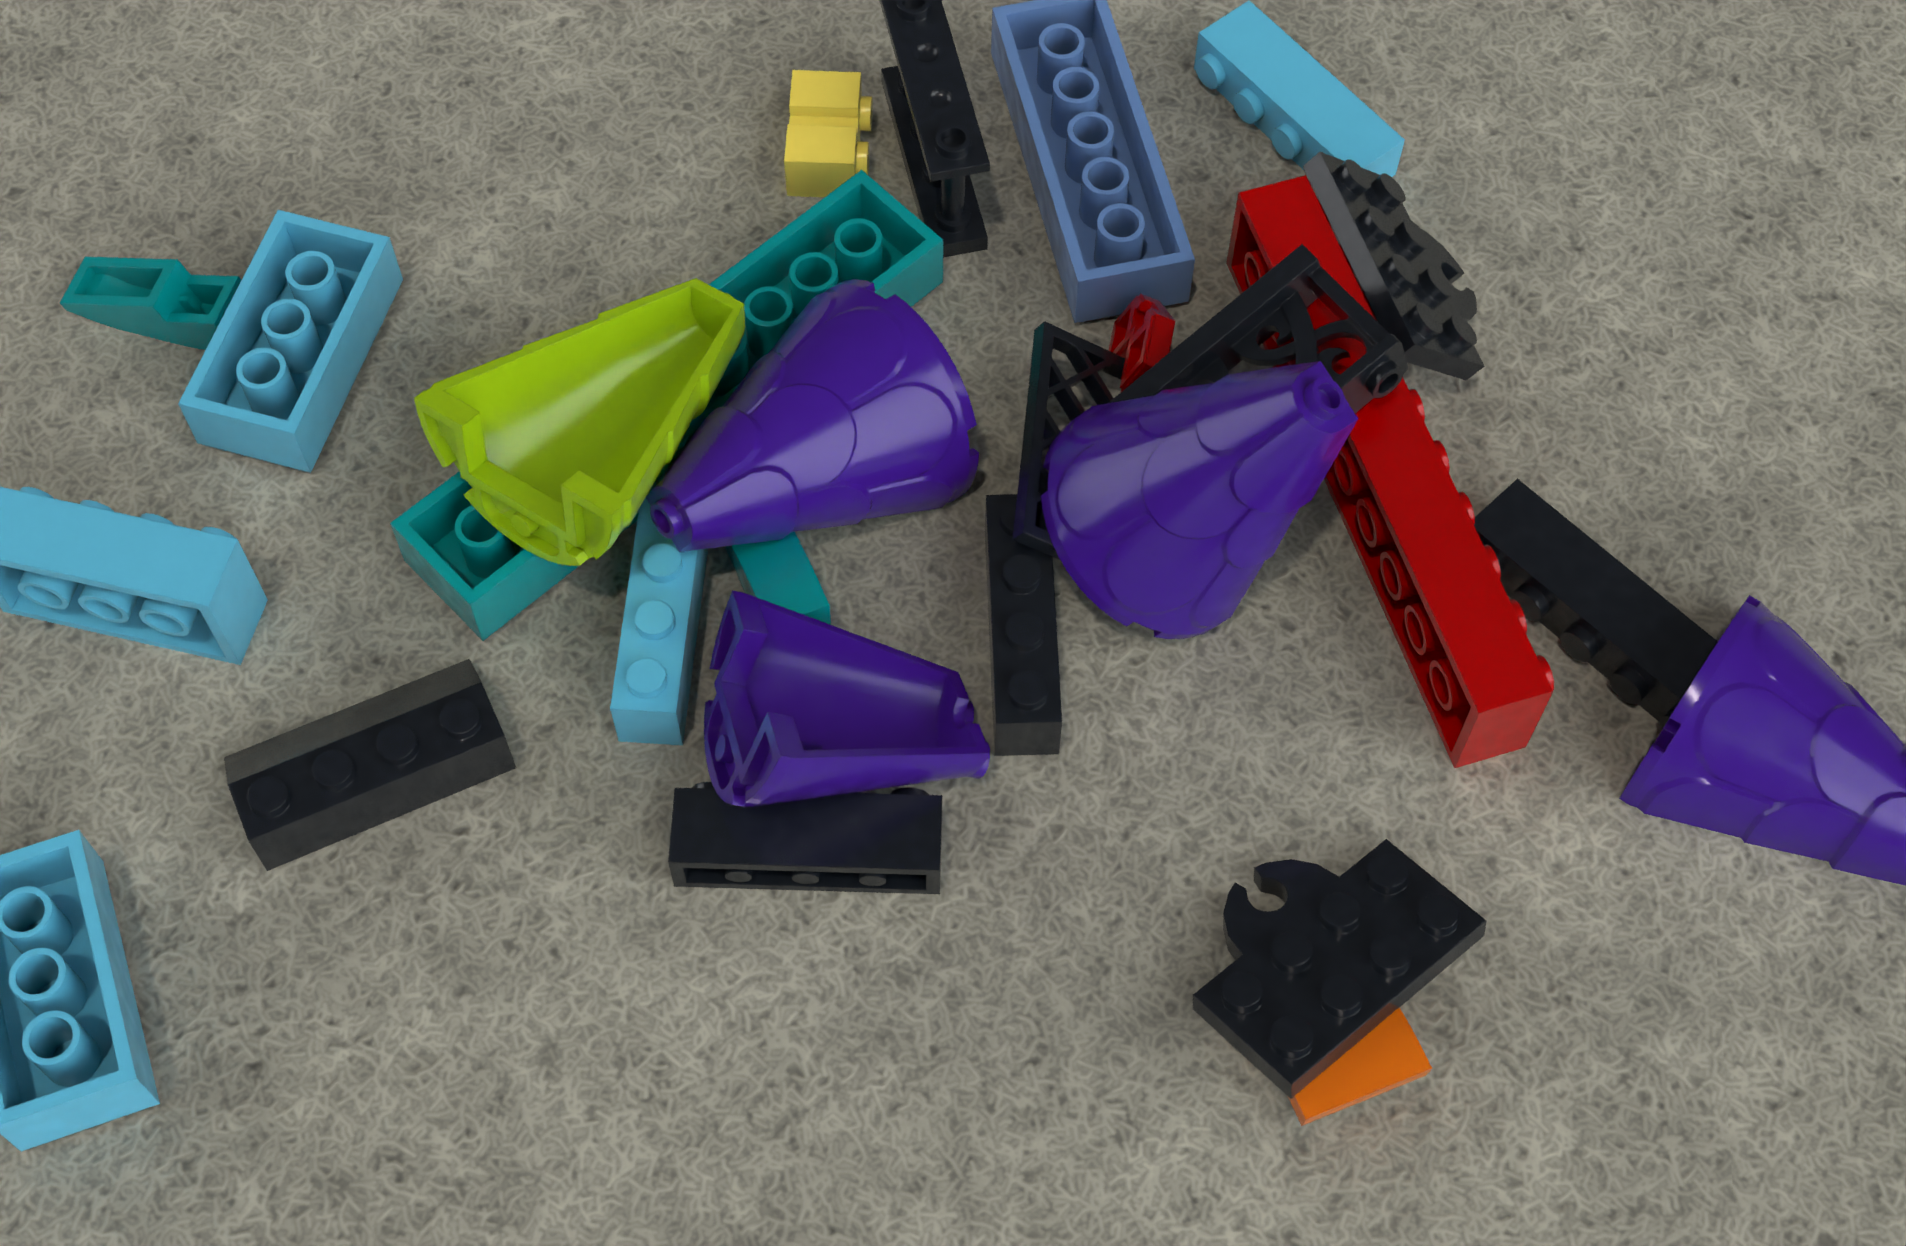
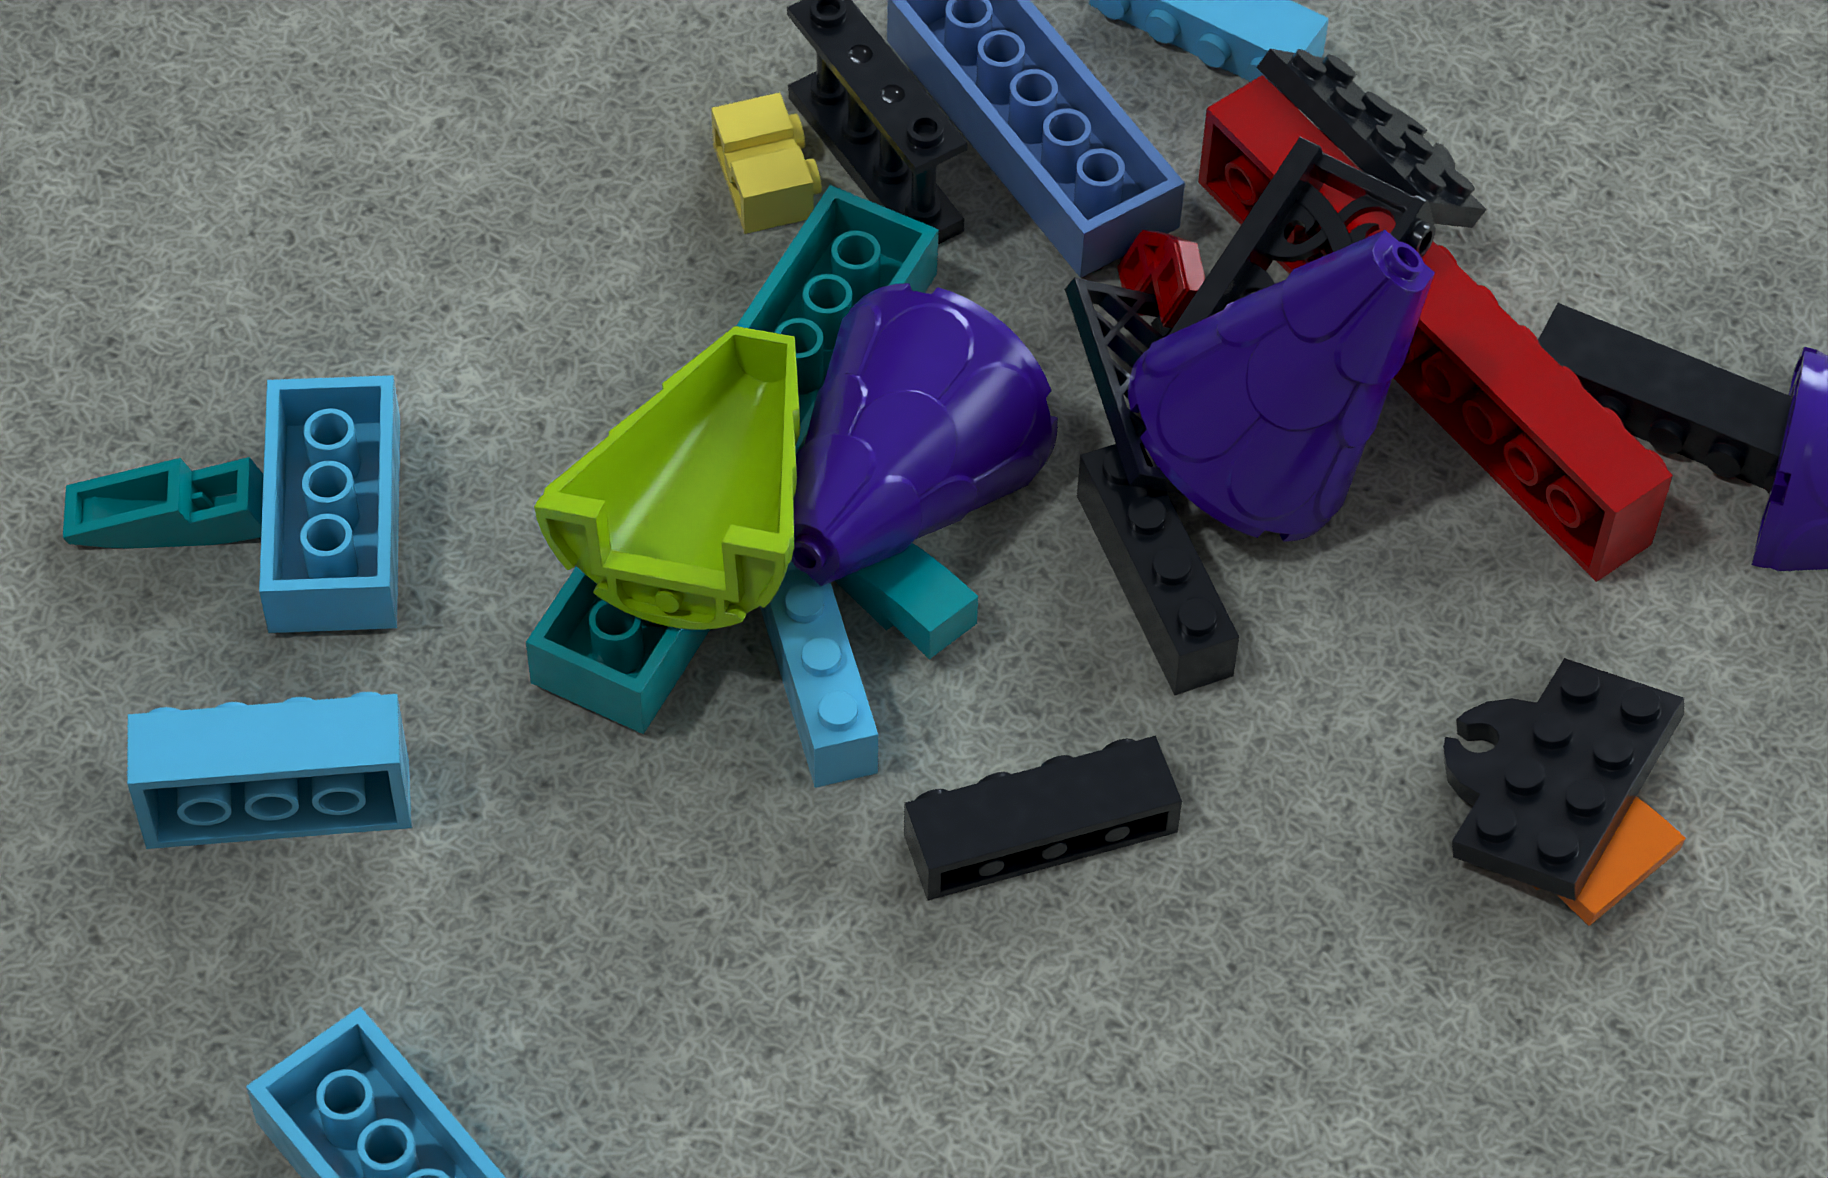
camera: 20 degrees left, 5 degrees down
(367, 764) = (590, 873): black slope -> none
(828, 711) = (1014, 693): dark purple cone -> none

